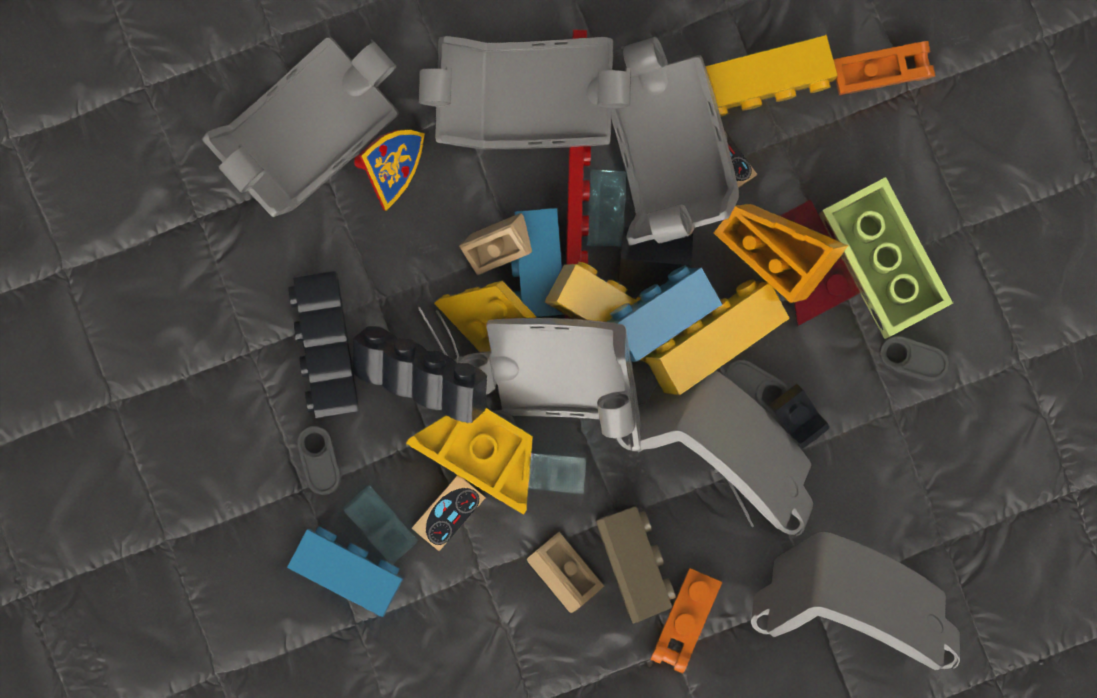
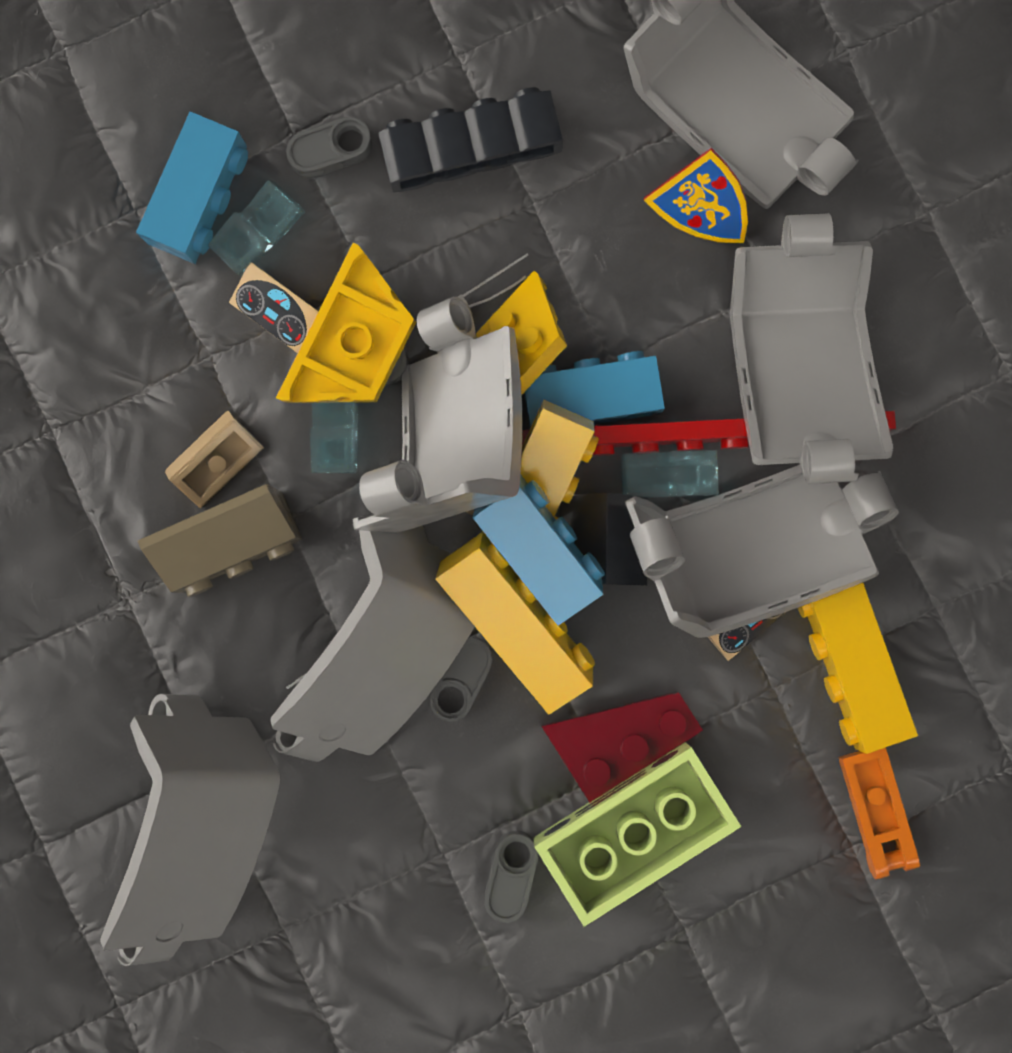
camera: 90 degrees right, 0 degrees up
(424, 375) = (439, 252): black brick -> none
(497, 244) = (612, 339): tan slope -> none
(686, 619) = (165, 613): orange plate -> none
(780, 250) = (634, 696): light orange wedge -> none
(799, 416) = (425, 736): black bracket -> none

